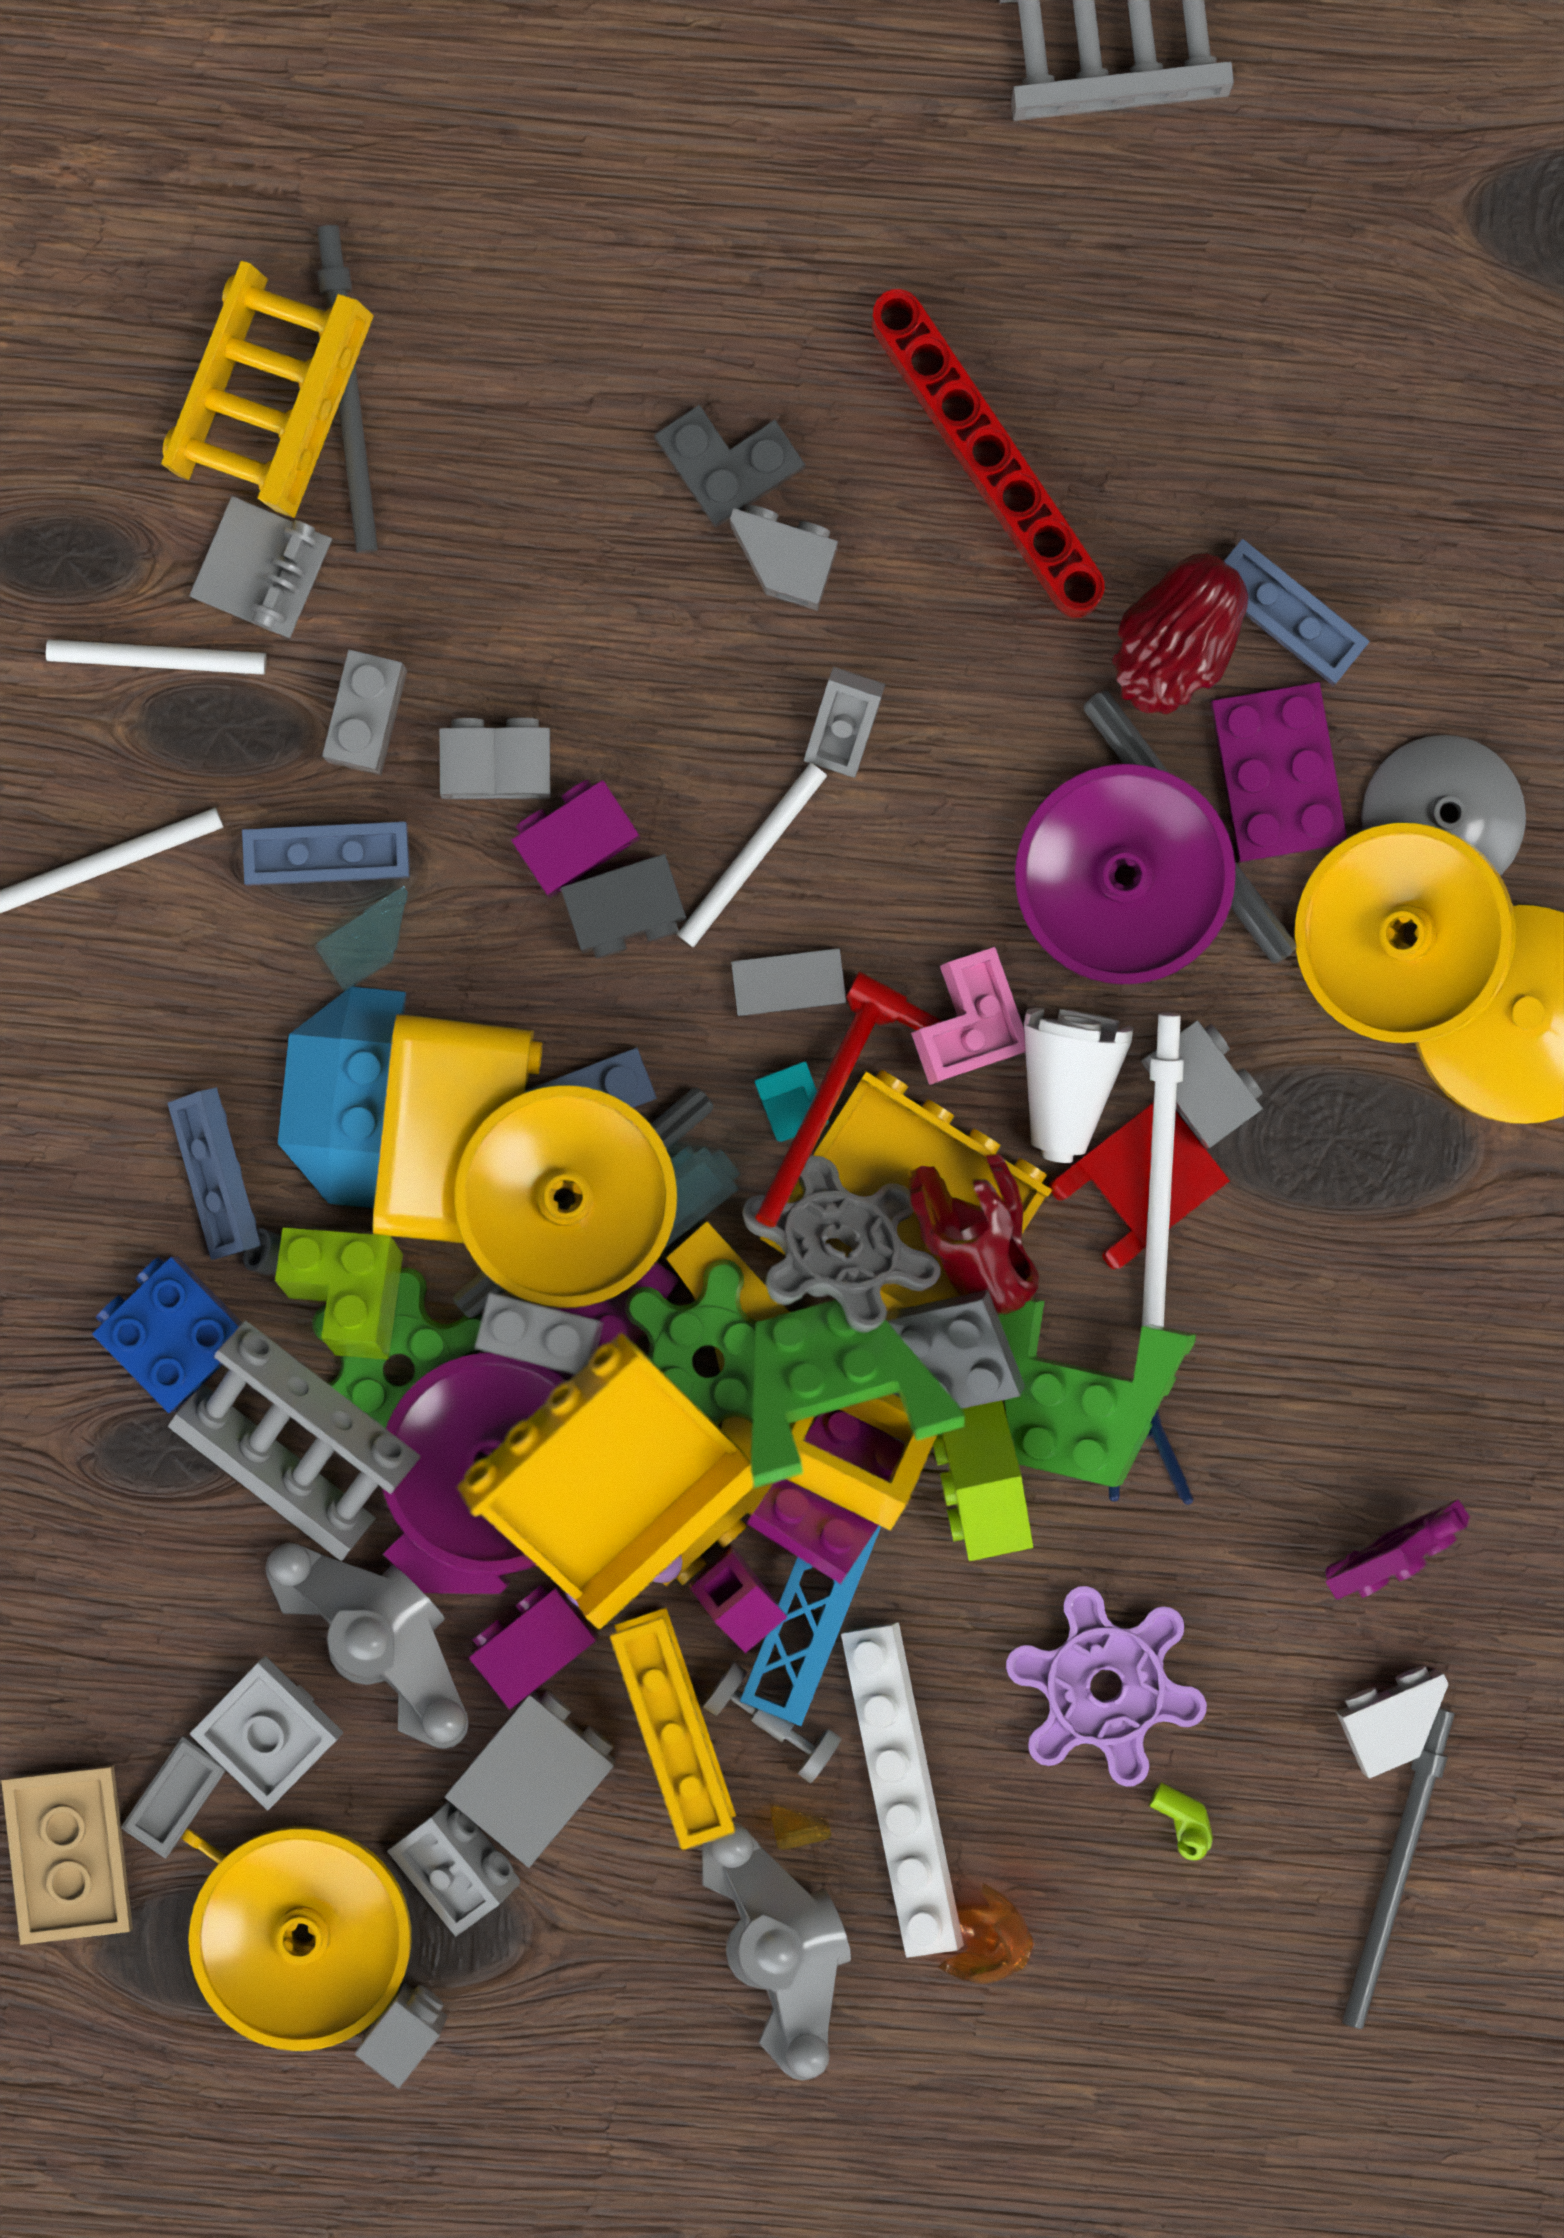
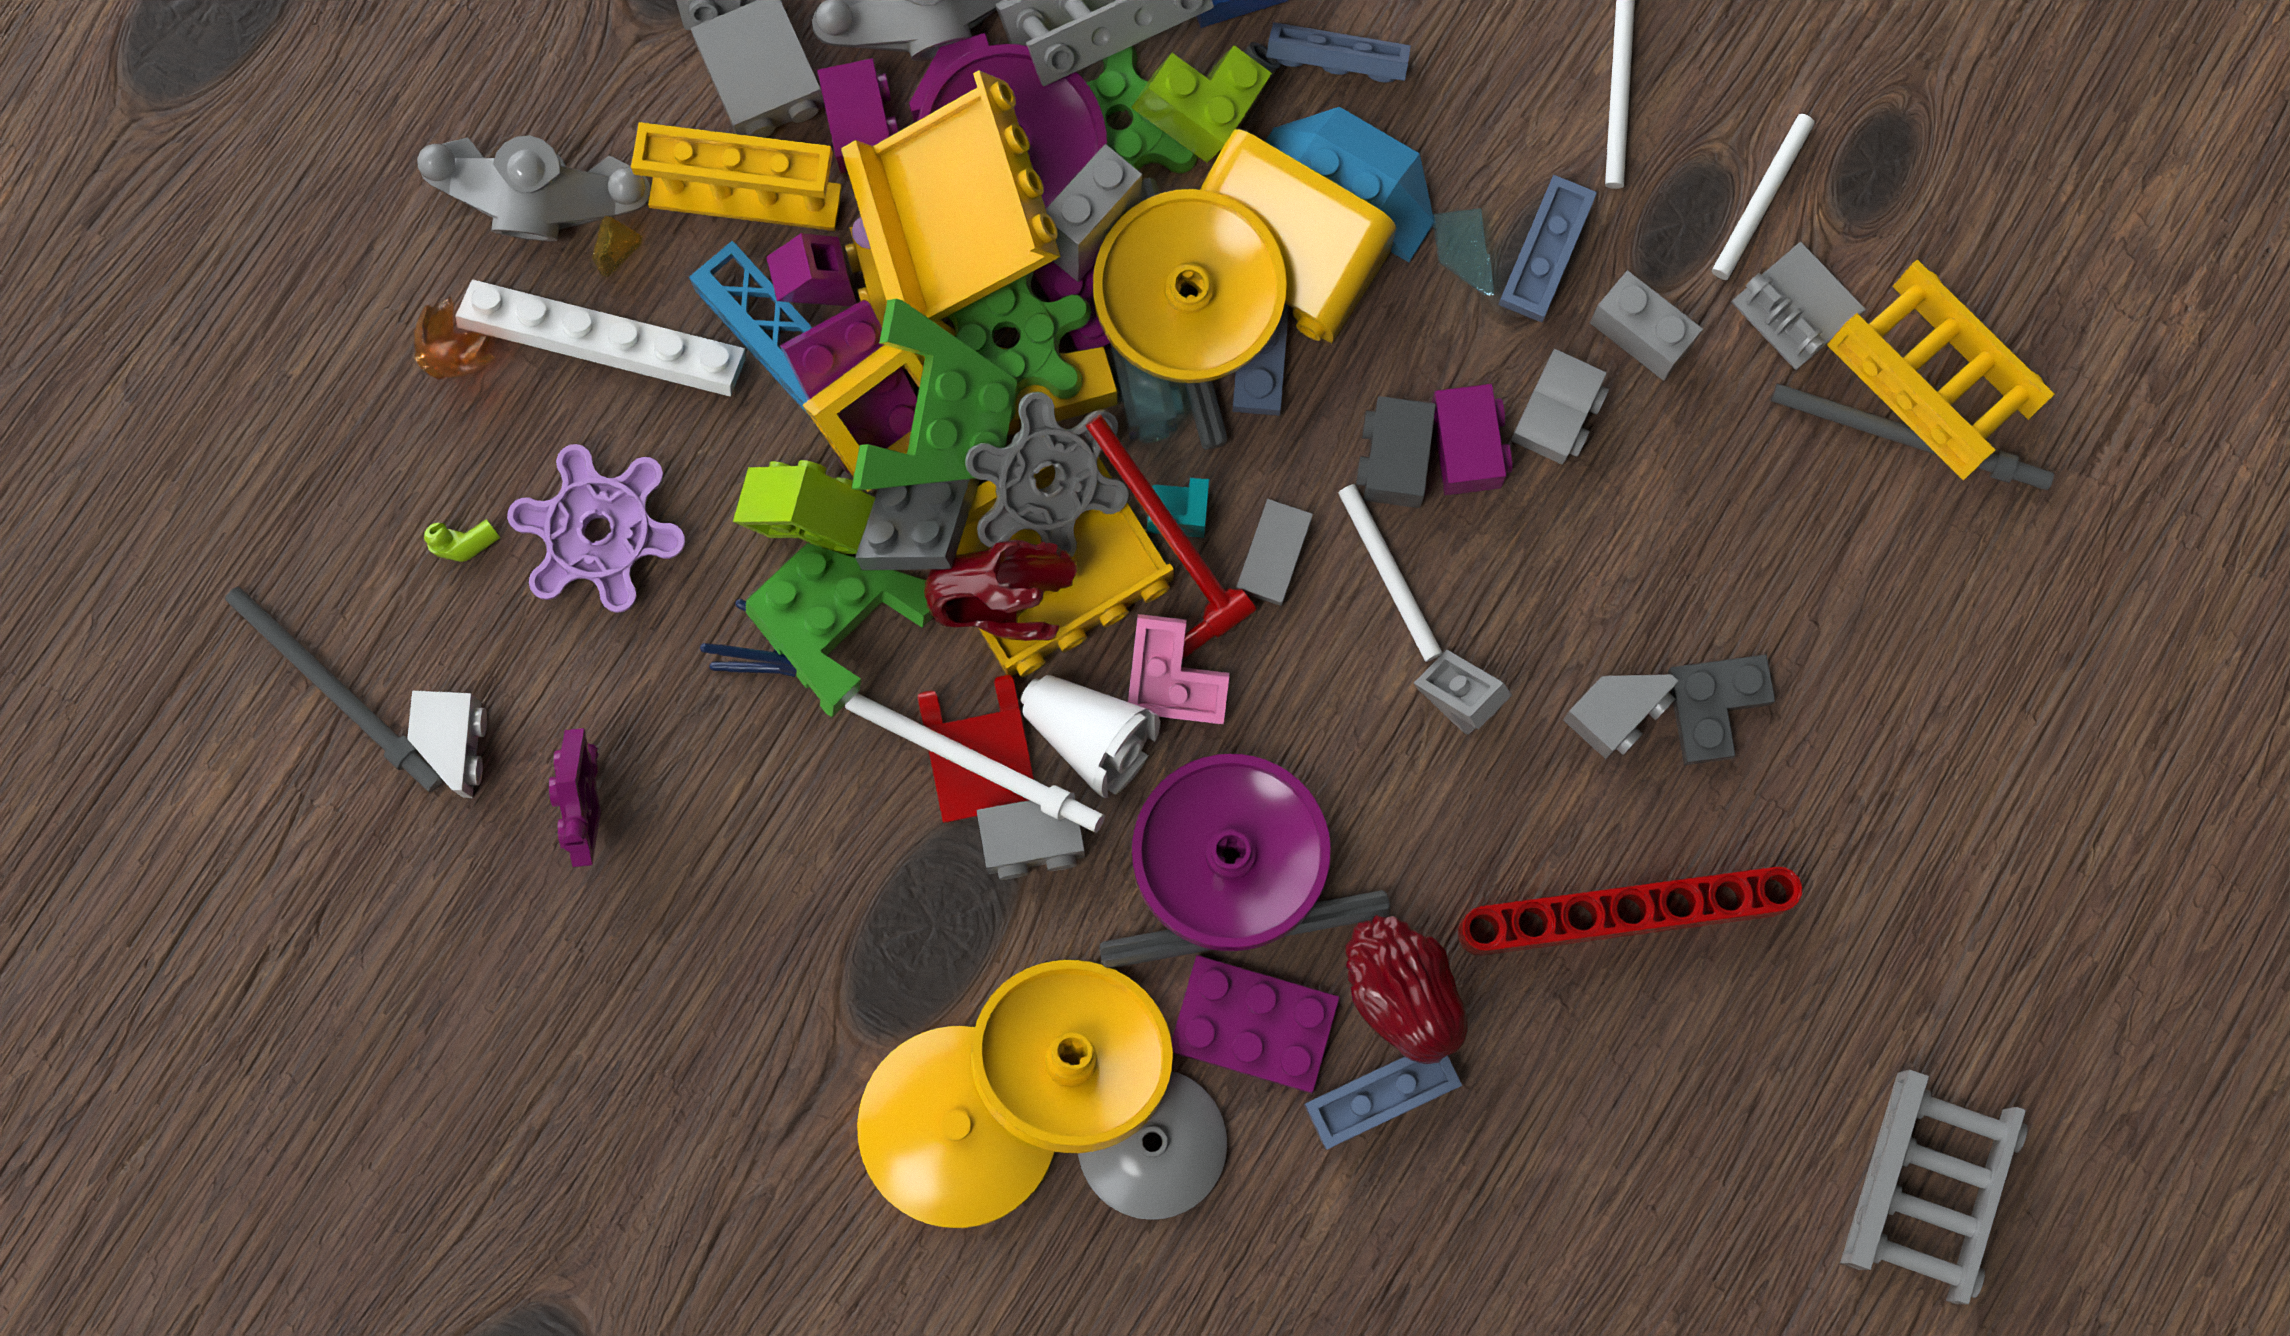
camera: 120 degrees right, 10 degrees down
(777, 1727) = (661, 286): light grey wheel -> none

